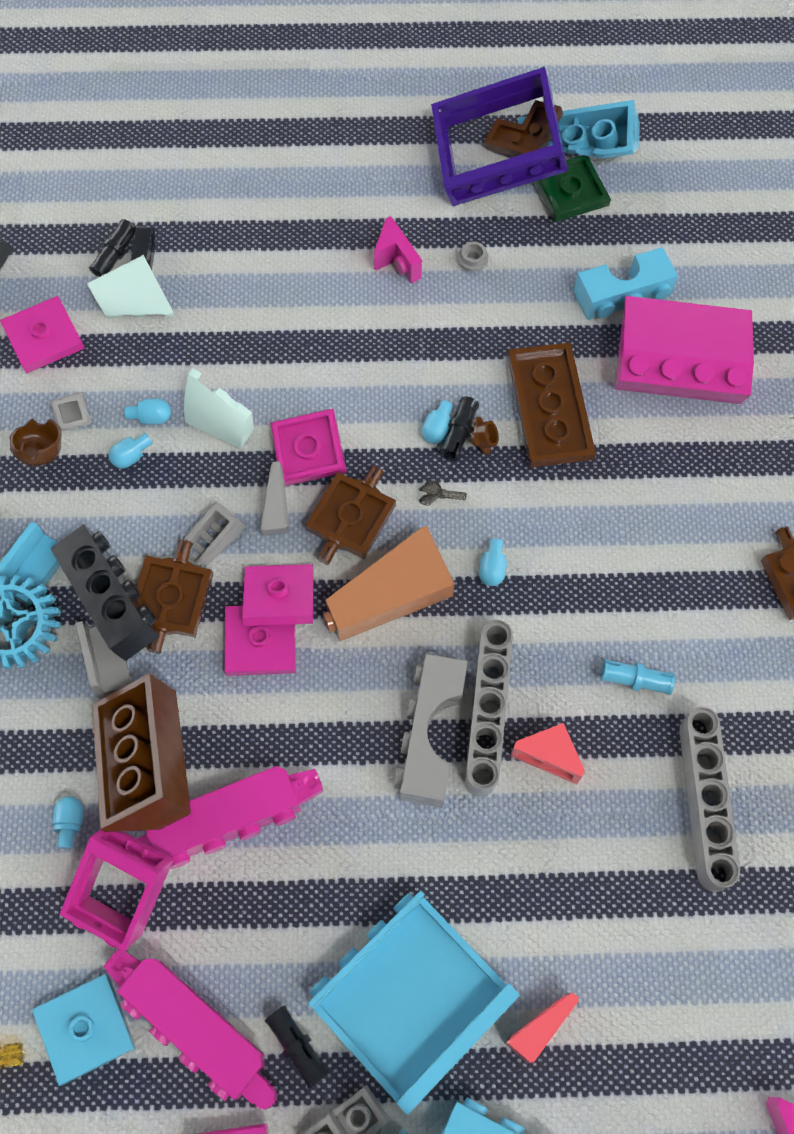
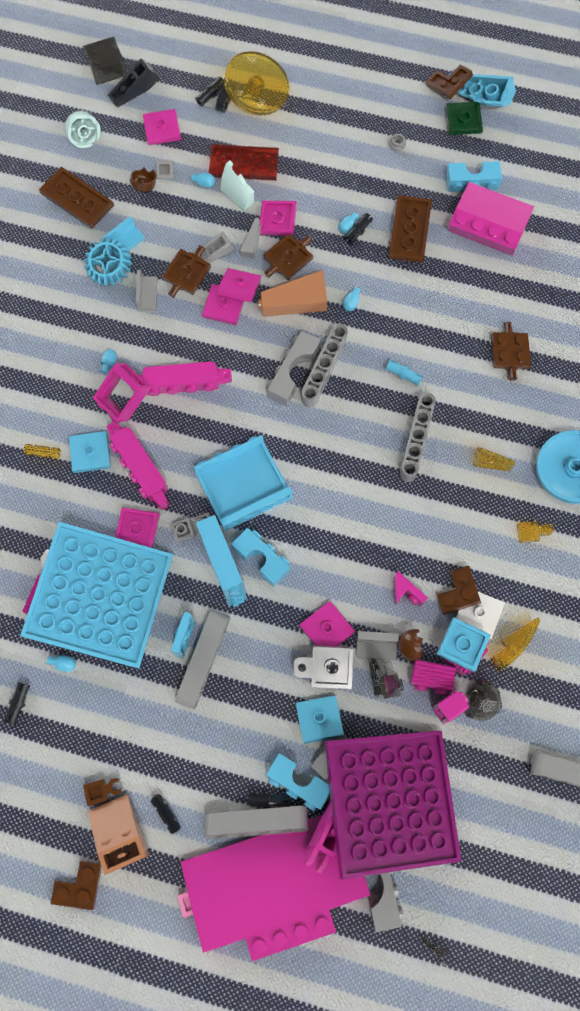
camera: 20 degrees right, 5 degrees up
(92, 572) = (155, 260): black brick -> none
(128, 451) = (187, 196): medium azure cylinder -> none
(130, 291) = (212, 115): light aqua slope -> none
(140, 758) = (149, 338): reddish brown slope -> none
(193, 215) = (256, 83): none -> clear yellow dish
(223, 356) = (249, 161): none -> clear red plate
(296, 1046) = (183, 487): black pin -> none
(396, 249) = (356, 128): dark pink slope -> none
(435, 491) = (333, 256): clear smoke hand -> none
(484, 435) = (369, 235): reddish brown plate -> none
(505, 173) = (432, 100): dark purple window -> none
(536, 1034) = (296, 513): coral slope -> none
(551, 752) = (347, 394): coral slope -> none

